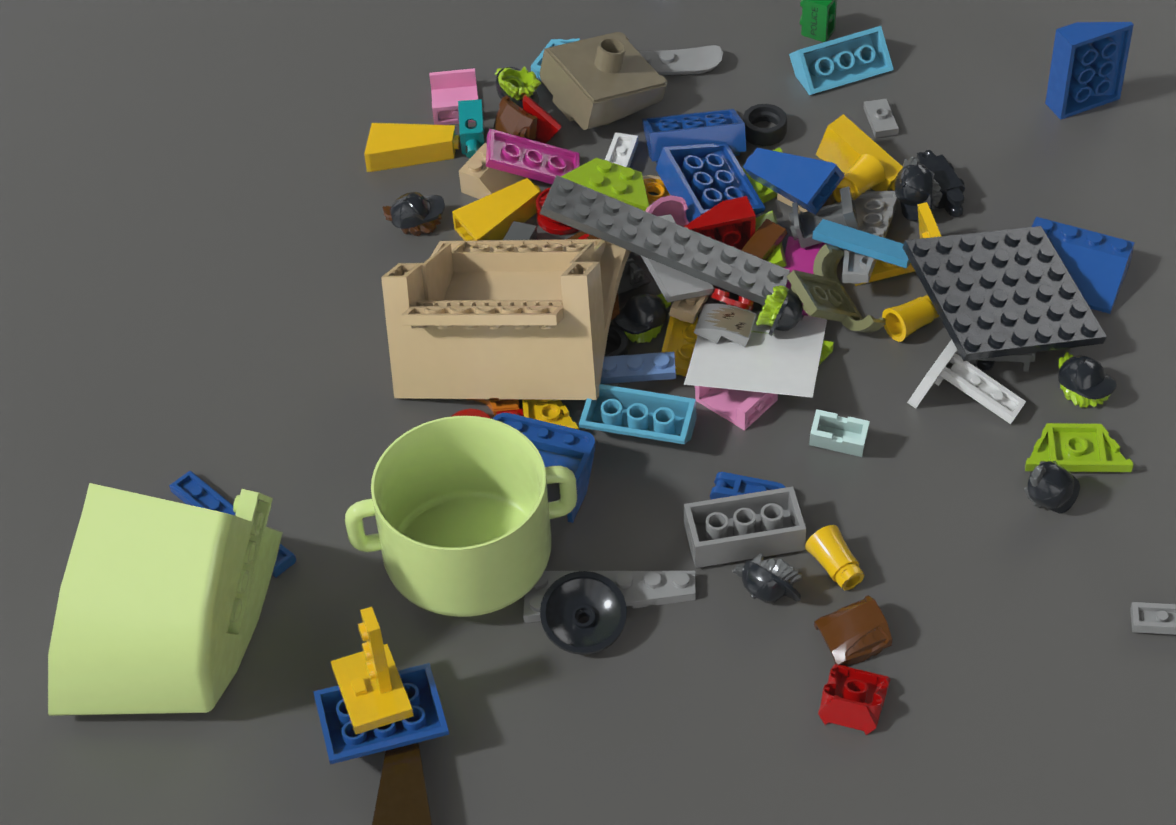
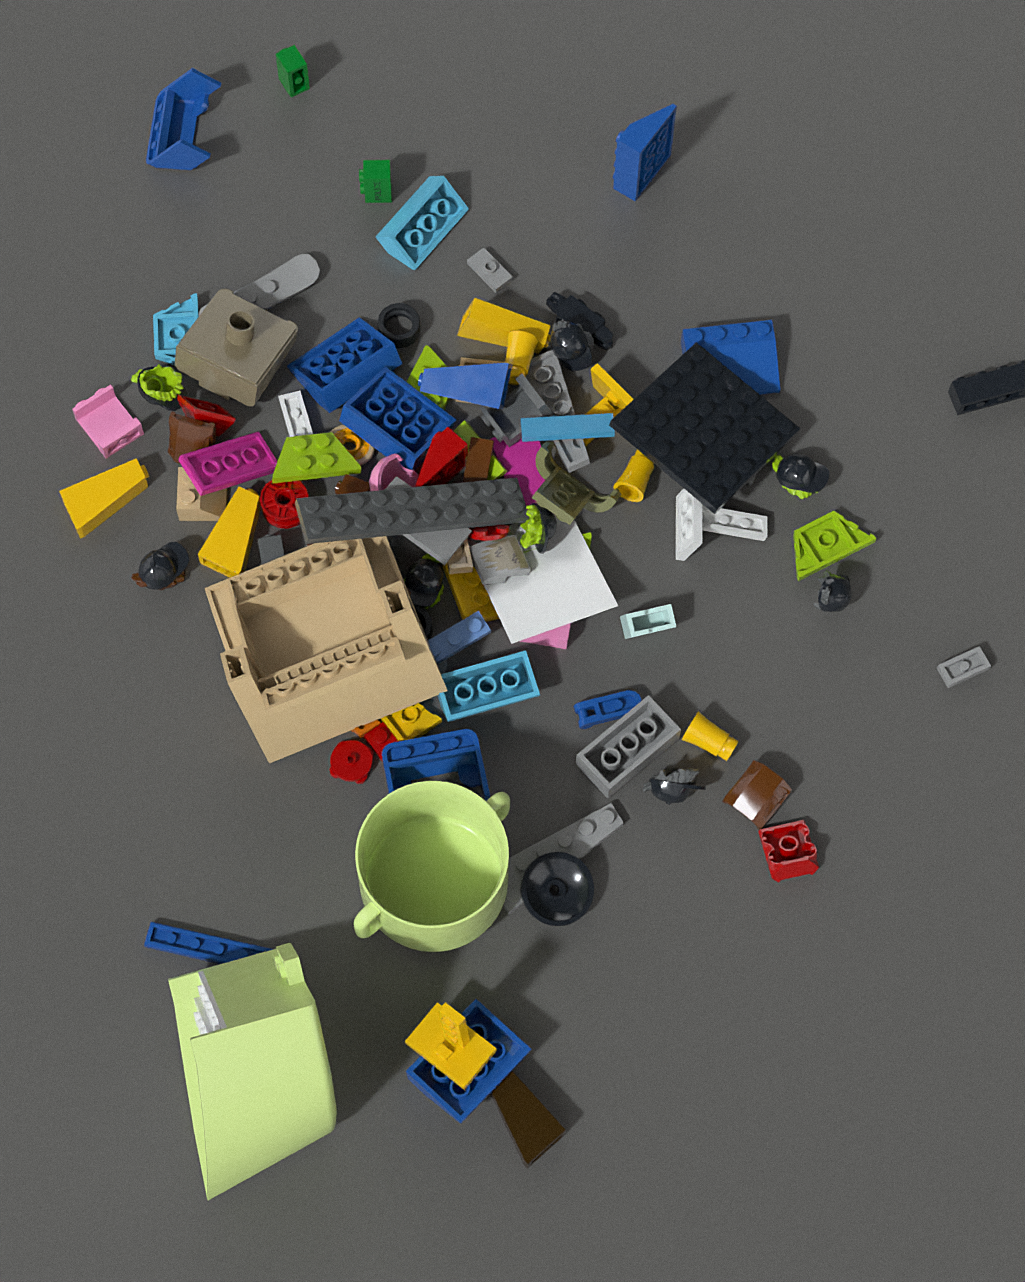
camera: 35 degrees left, 20 degrees up
(471, 137) = (153, 455): teal torso -> none

